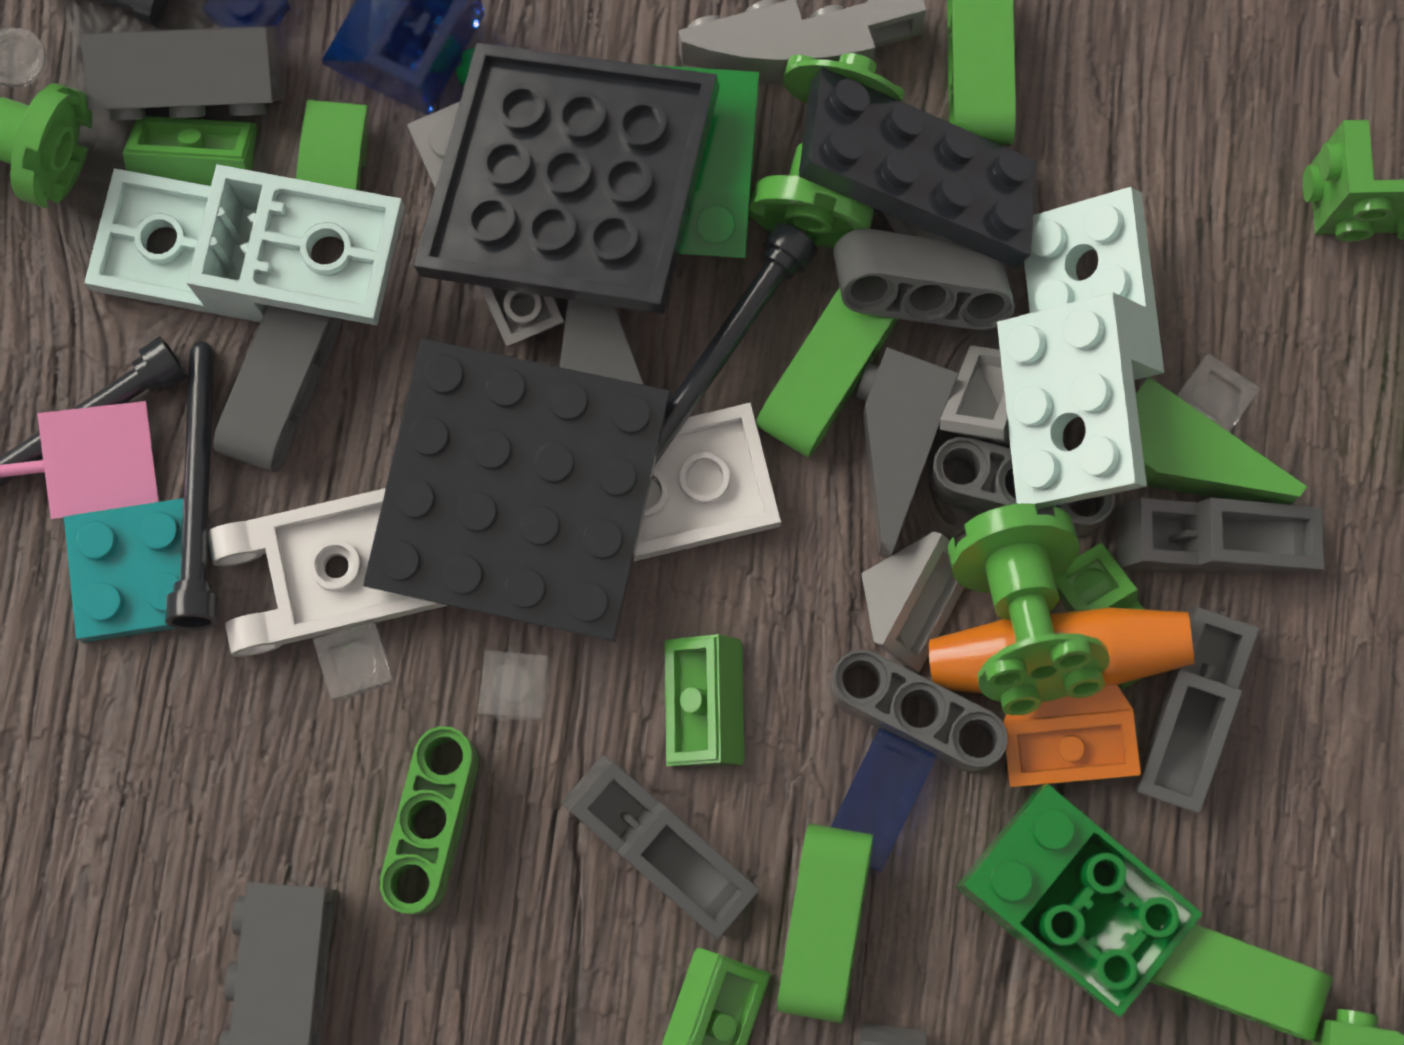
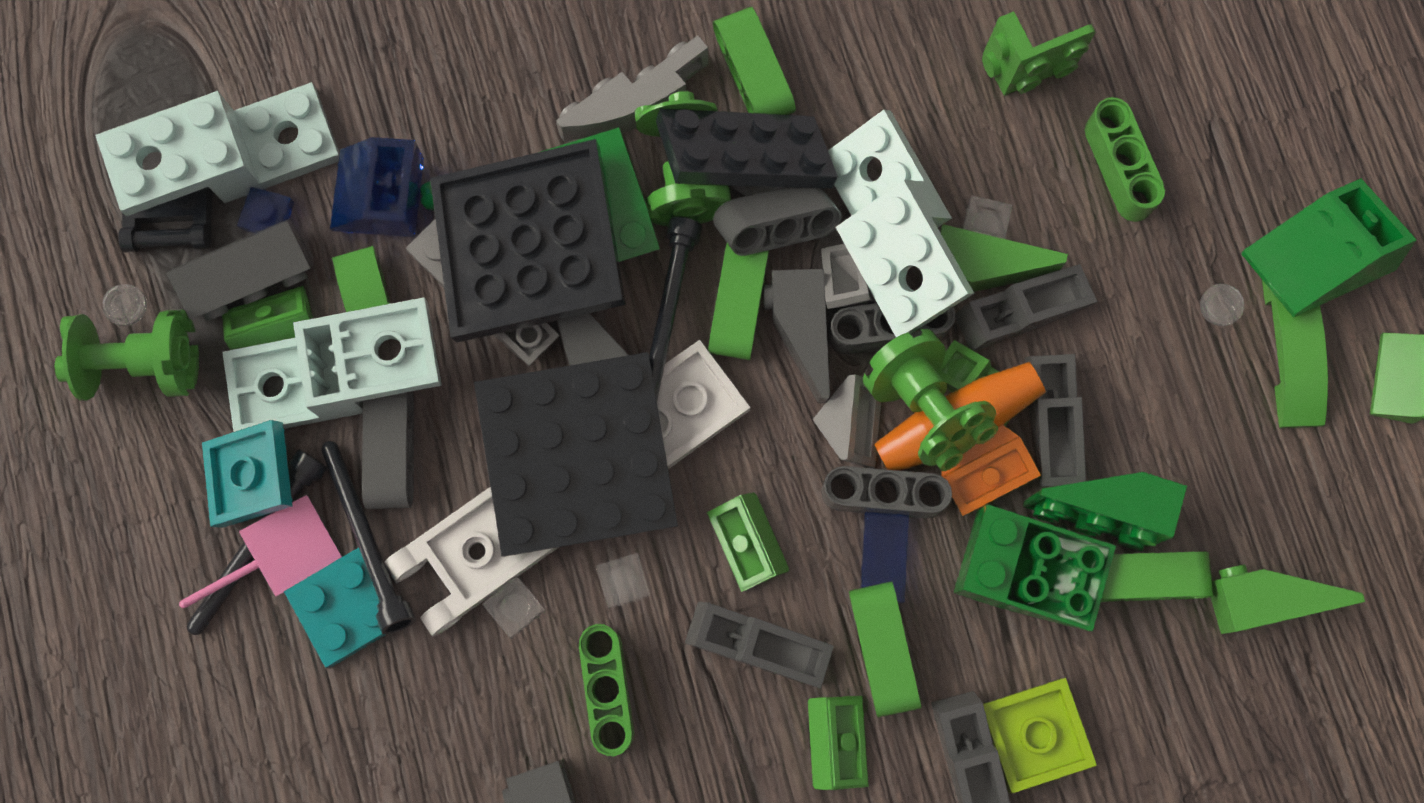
camera: 25 degrees left, 0 degrees up
(79, 342) = (246, 474): none -> teal plate
(1242, 865) = (1132, 507): none -> green slope

